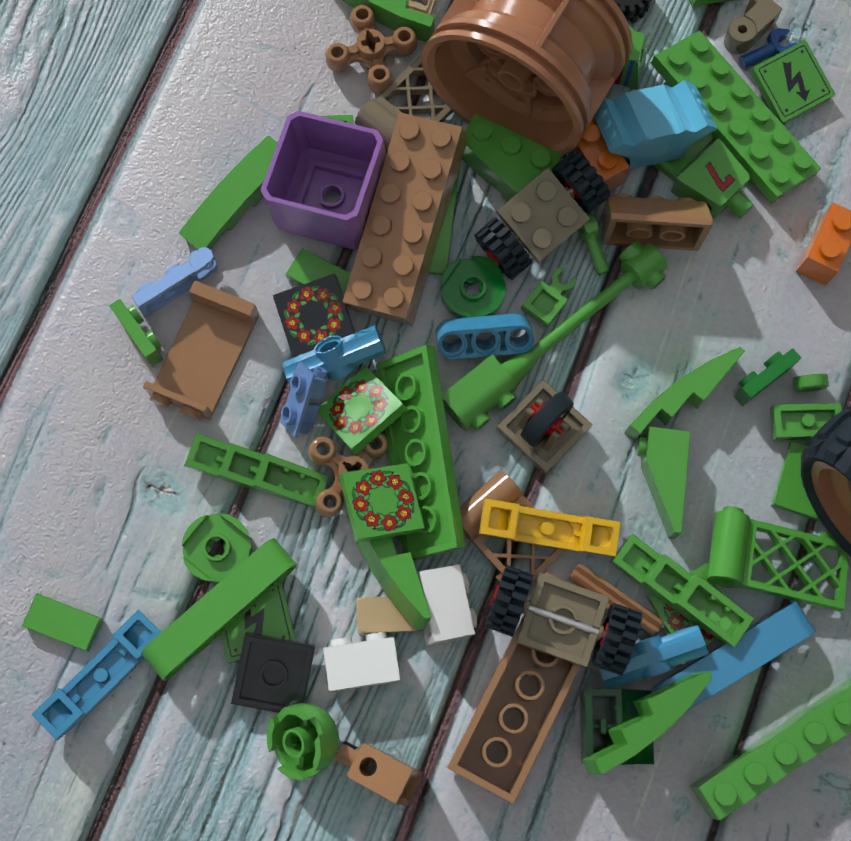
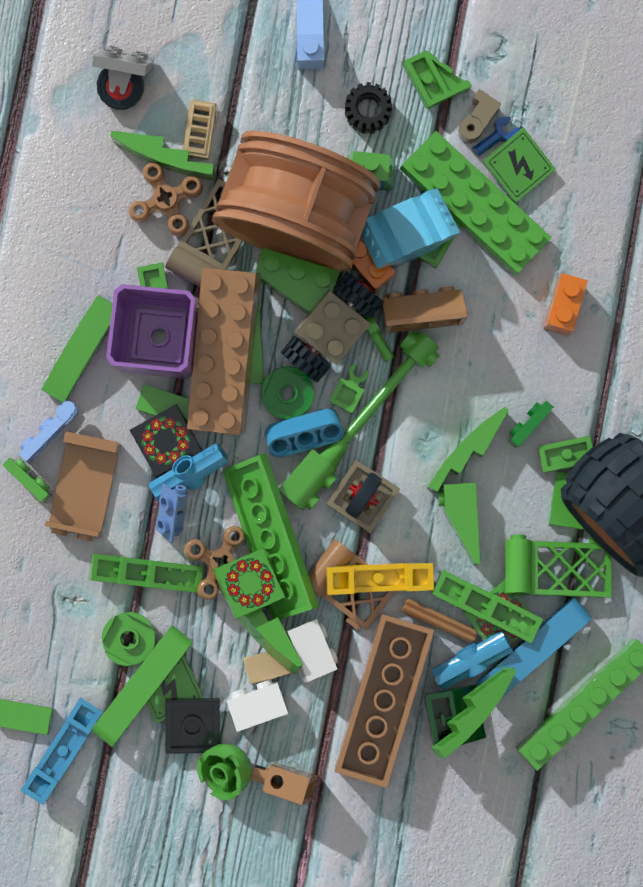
camera: 15 degrees left, 10 degrees up
(361, 410) = (218, 511): tile -> none
(564, 620) = (400, 650): plate -> none
(717, 180) = (467, 267): bright green torso -> none
(811, 382) = (565, 422): bright green tile -> none

